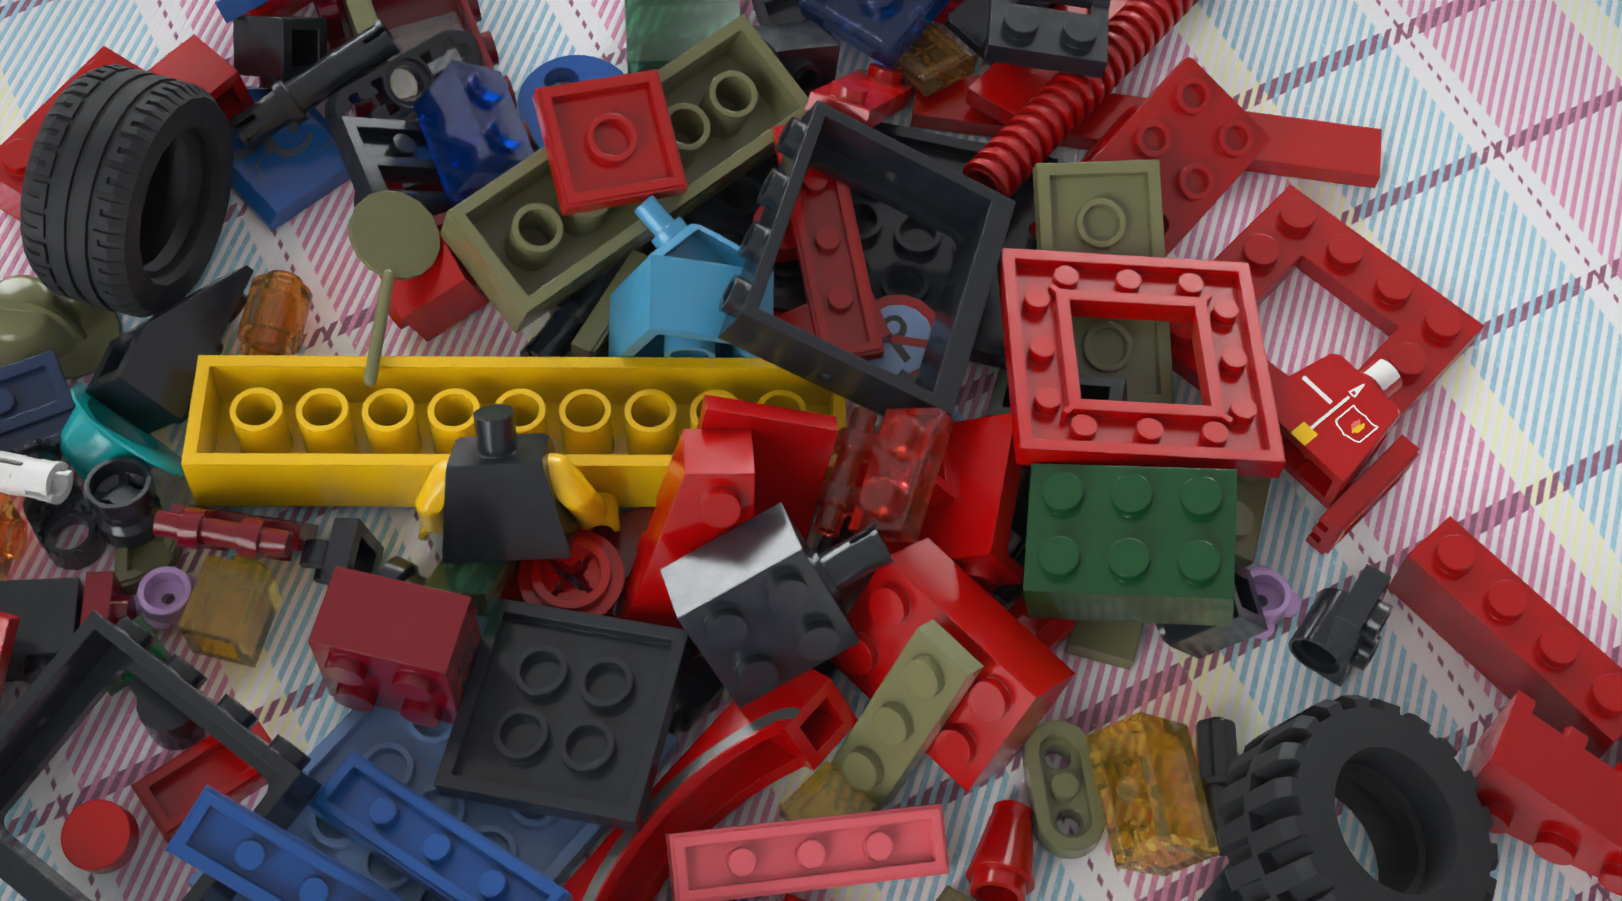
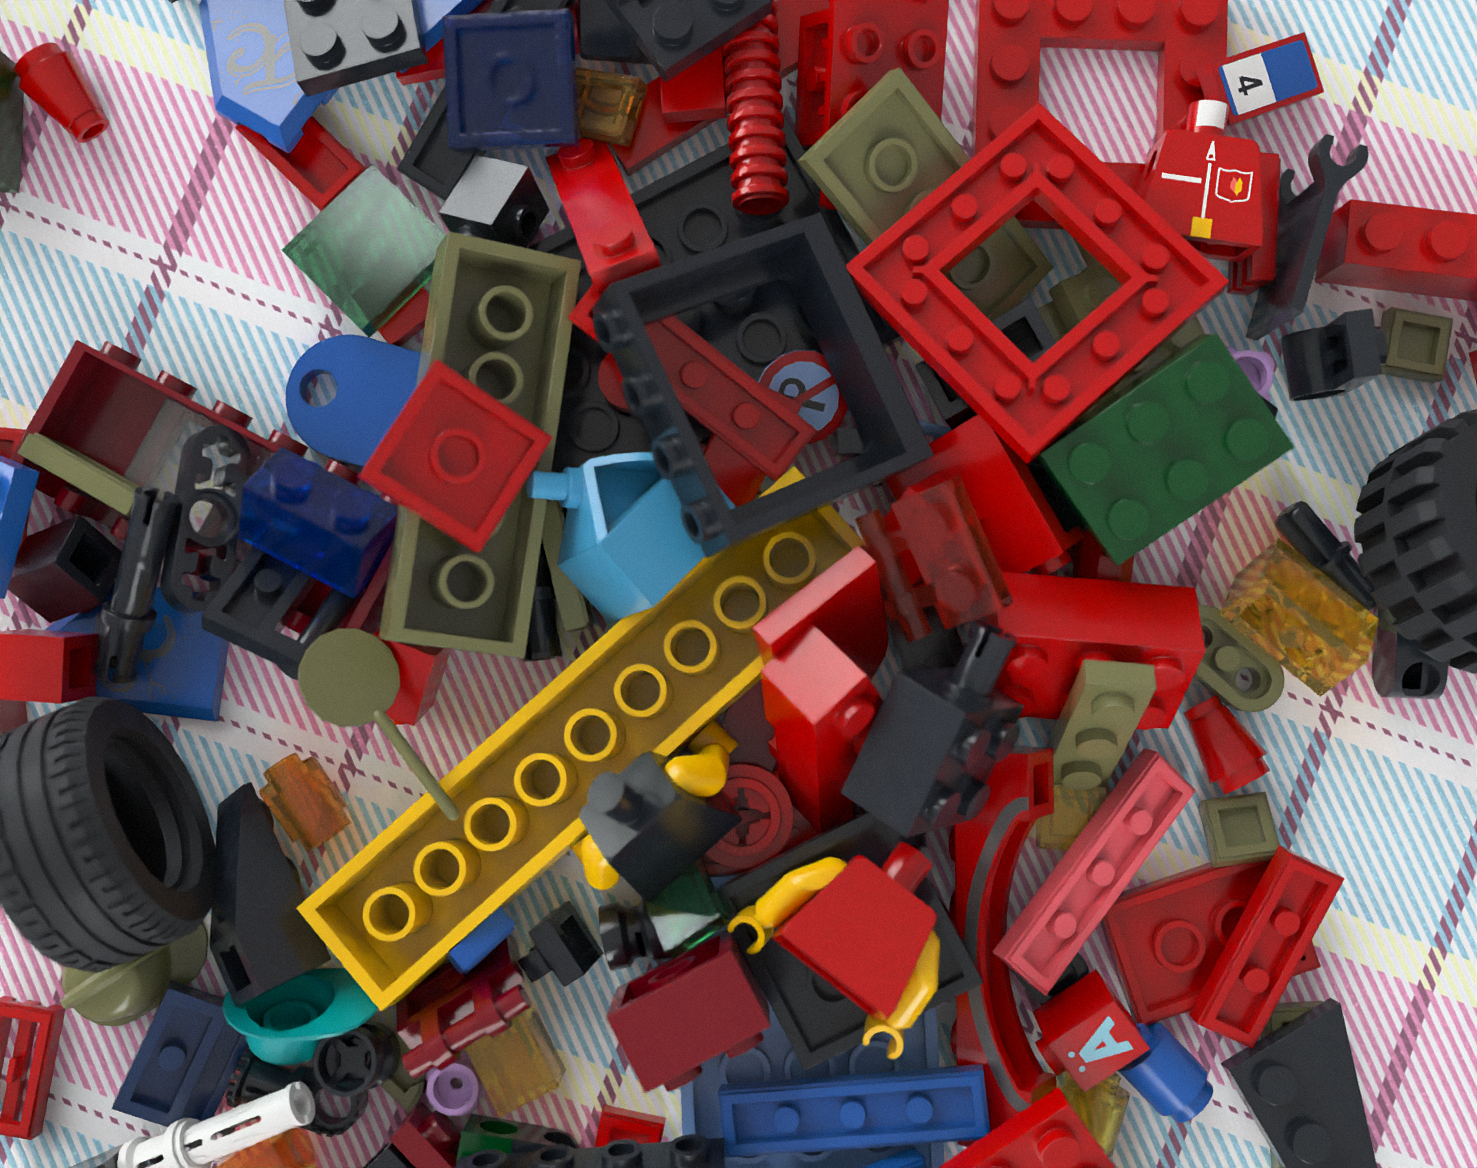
camera: 40 degrees left, 25 degrees up
(295, 495) = (481, 941): none -> blue tile
(575, 688) = (859, 934): none -> red torso
(1387, 515) = (1301, 235): none -> black flag
(1431, 689) = (1416, 344): none -> olive tile
(1454, 402) = (1262, 79): none -> tile

